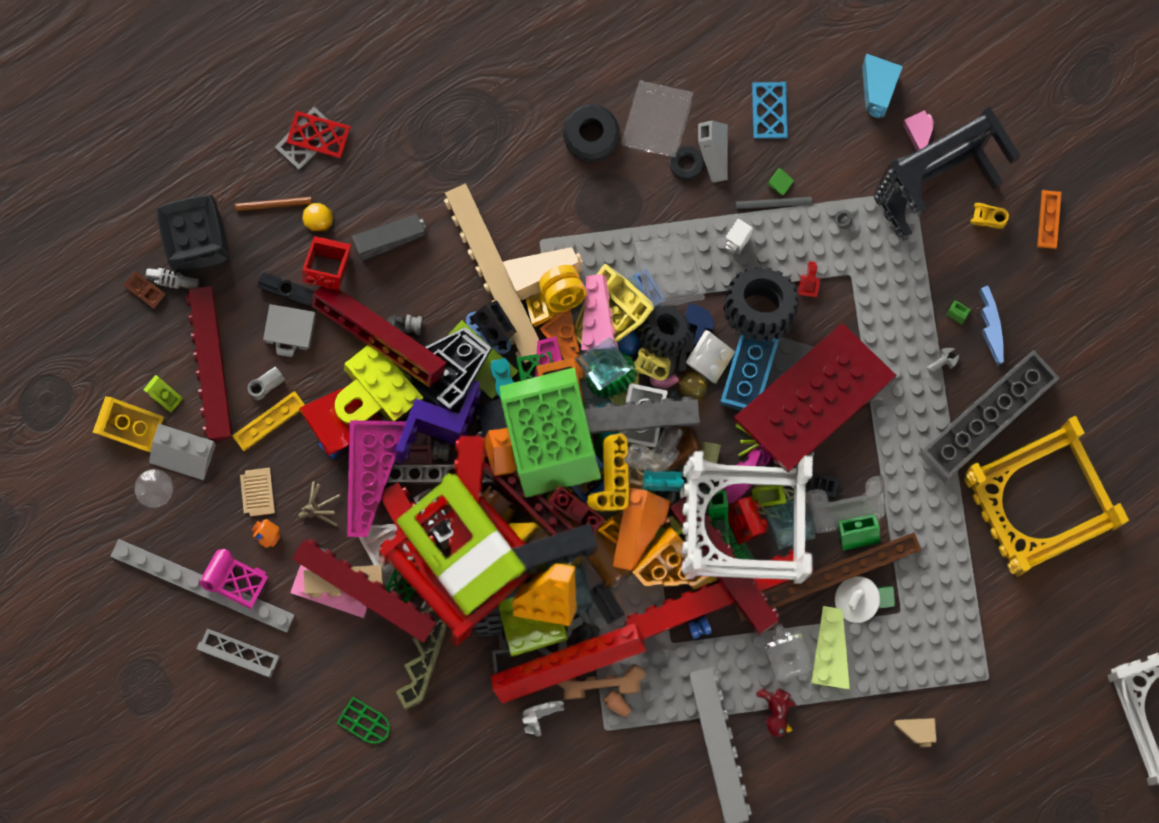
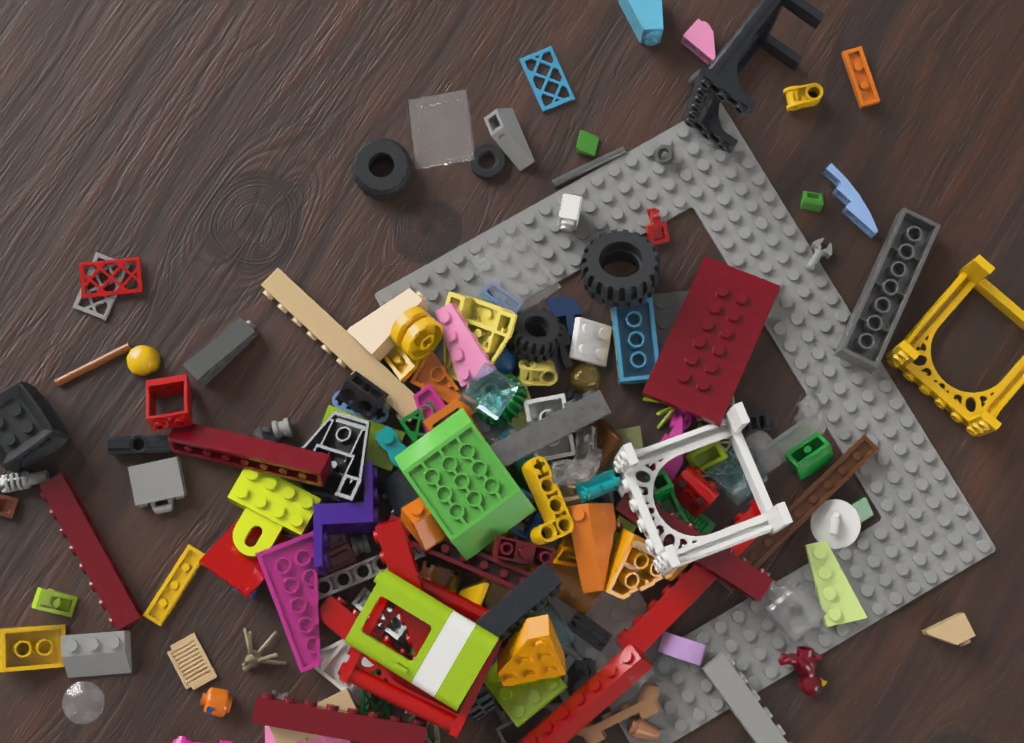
camera: 25 degrees left, 0 degrees up
(266, 382) = (157, 546): light grey piece -> none
(664, 384) = (555, 388): bright pink arm -> none
(679, 649) = (682, 648): none -> lavender slope
(695, 628) = (688, 620): blue wheel -> none

